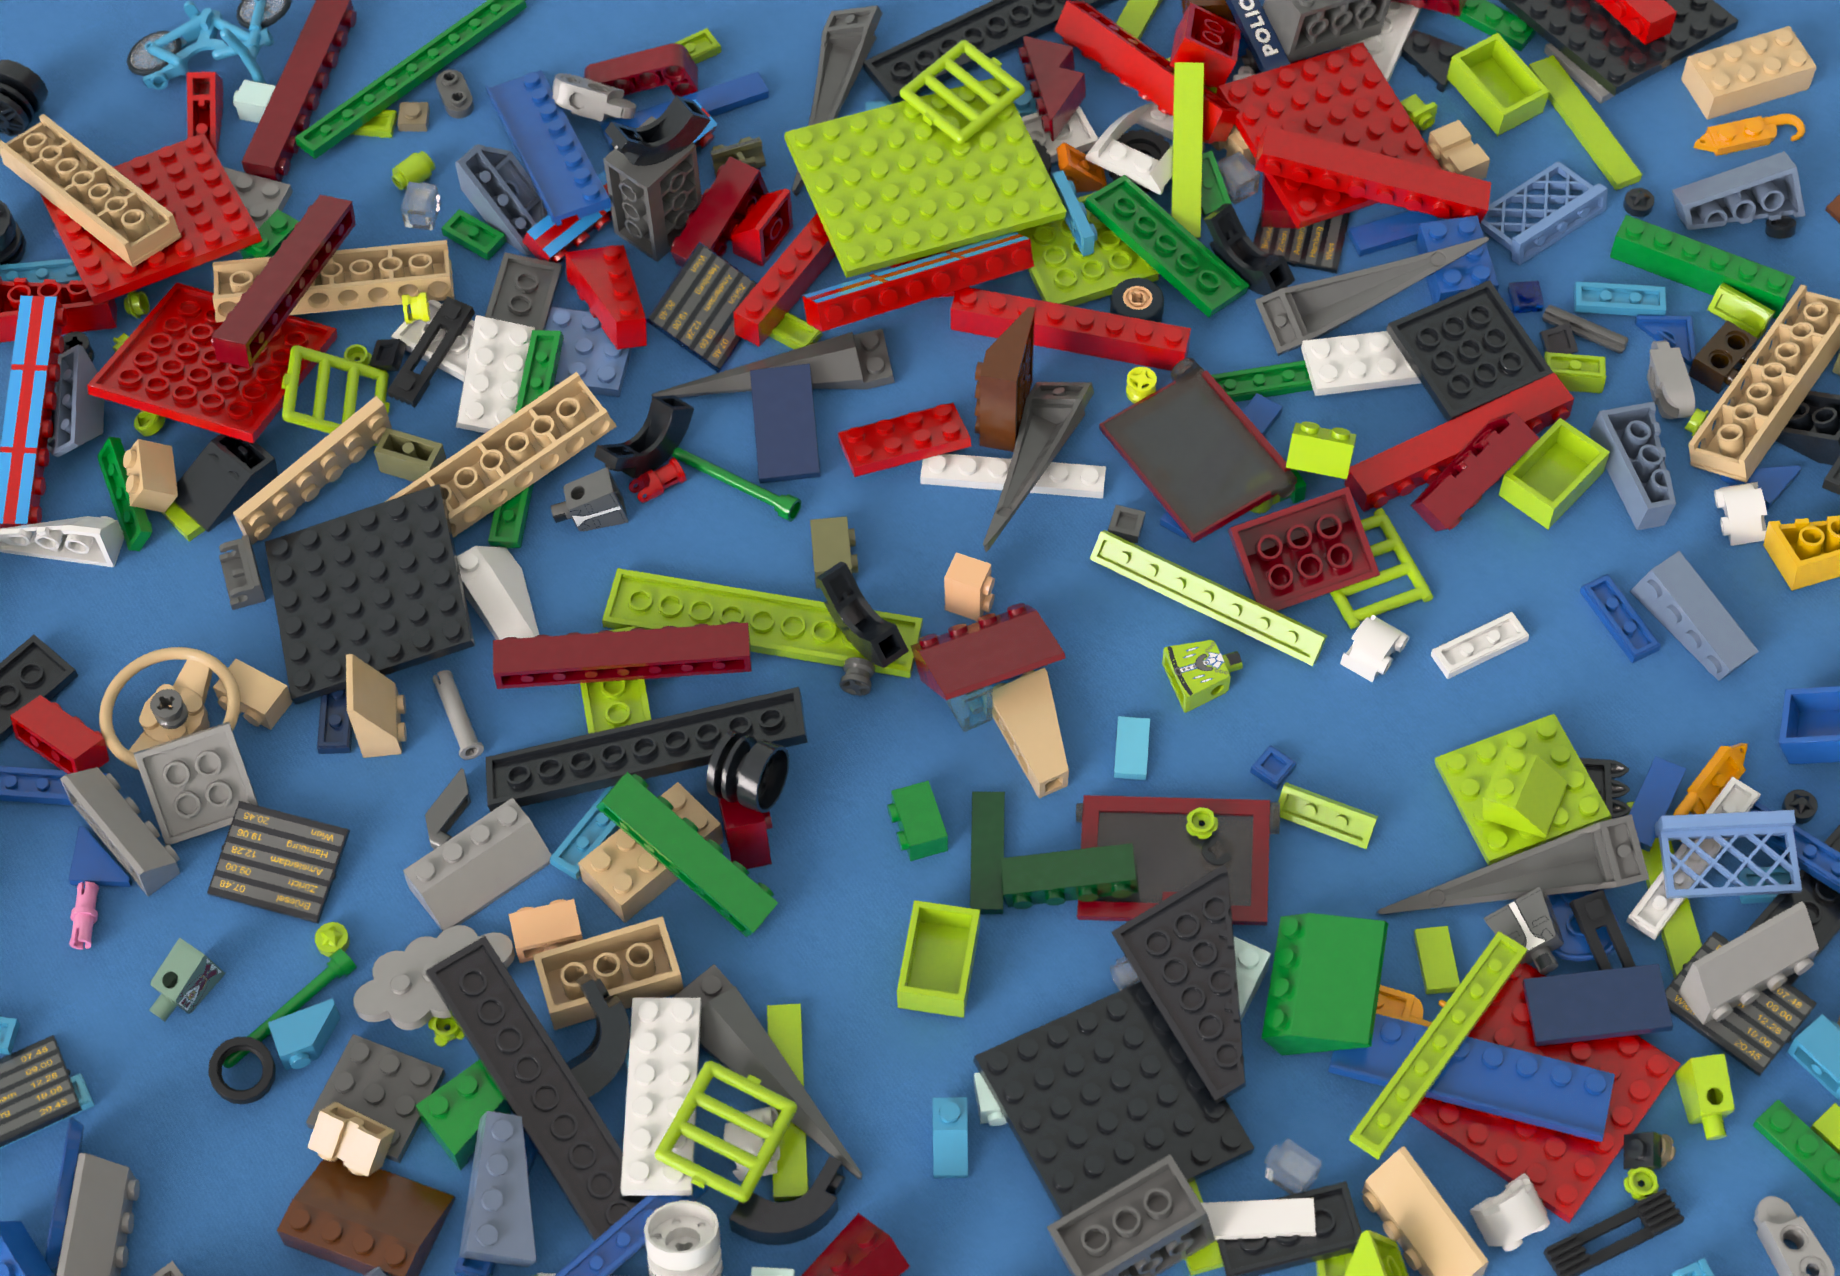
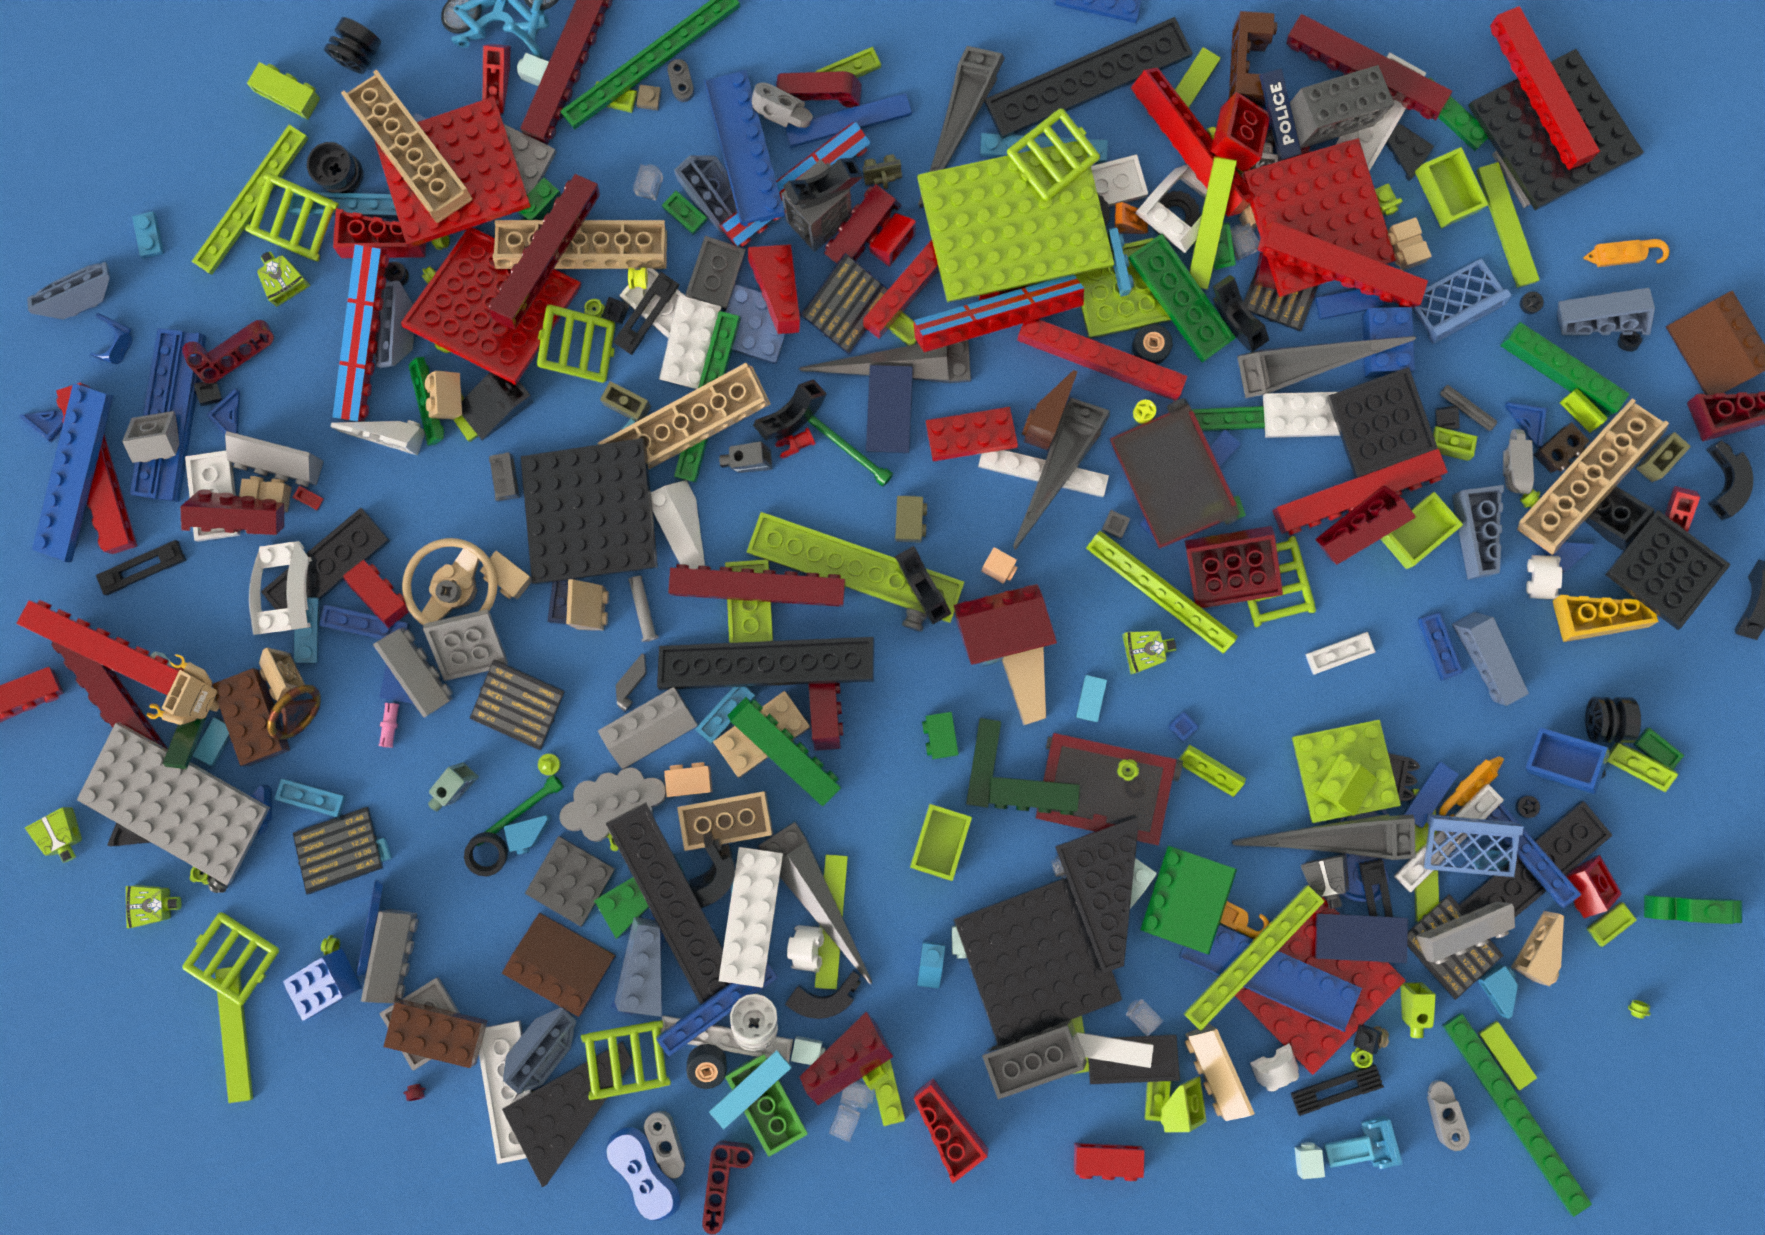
camera: 10 degrees right, 25 degrees up
(313, 471) = (551, 414): tan plate -> none
(351, 1138) = (552, 914): brick -> none
(414, 168) = (644, 150): lime brick -> none
(747, 771) = (827, 703): black wheel -> none
(755, 1164) = (772, 928): lime bar -> none
(1053, 82) = (1122, 143): dark red slope -> none
(1321, 450) = (1262, 493): slope -> none
(1372, 648) = (1268, 646): white cylinder -> none
(1436, 960) = (1264, 883): lime tile -> none
(1525, 297) = (1432, 373): clear blue plate -> none
(1619, 299) = (1499, 387): dark azure plate -> none
(1748, 72) = (1640, 200): tan brick -> none

